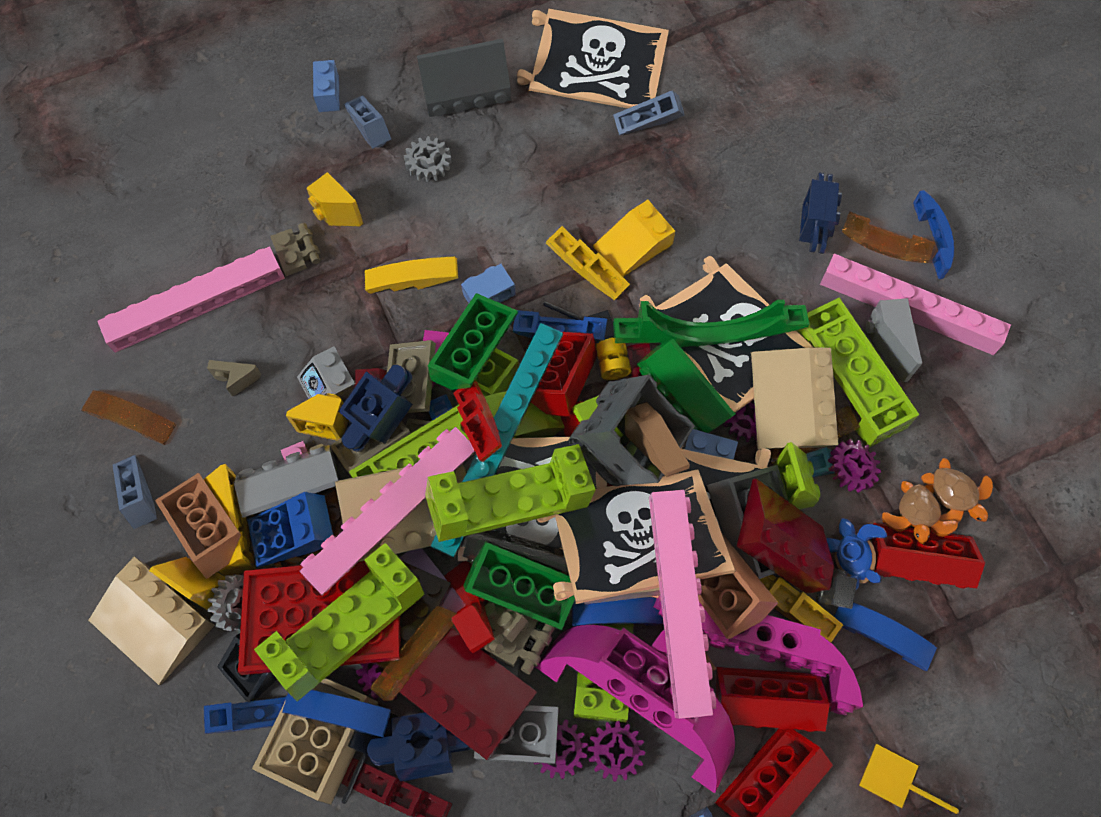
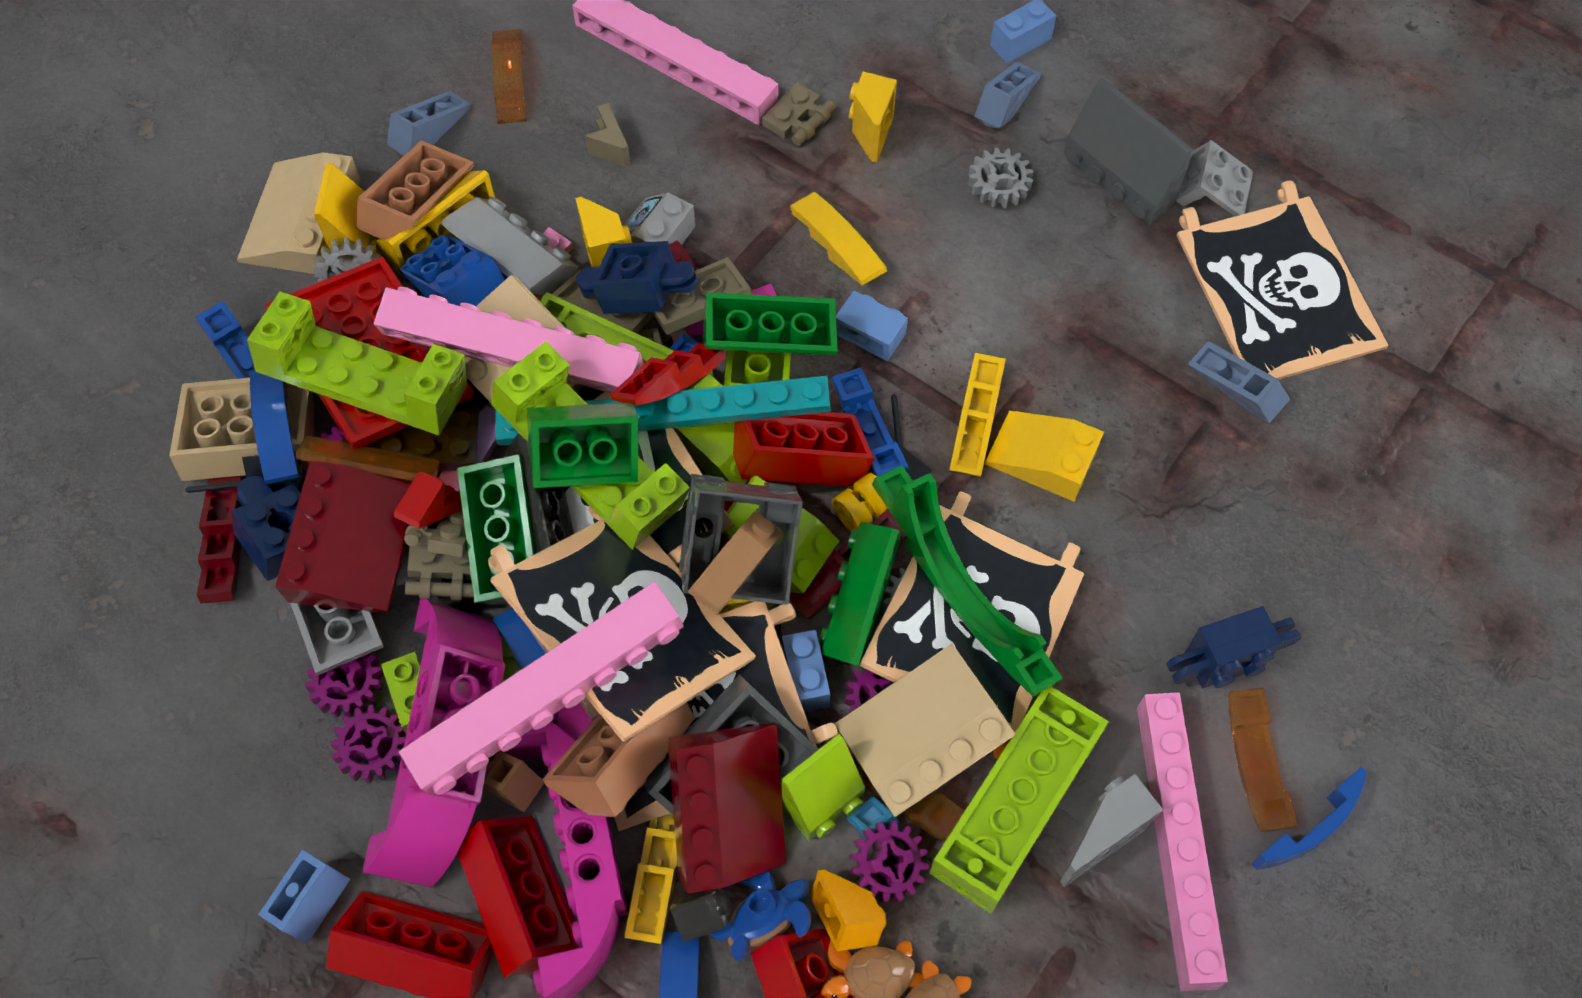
camera: 60 degrees right, 5 degrees down
(510, 494) = (583, 444): none -> green slope
(514, 44) = (1219, 177): none -> light grey bracket
(875, 504) = (847, 912): none -> light orange slope

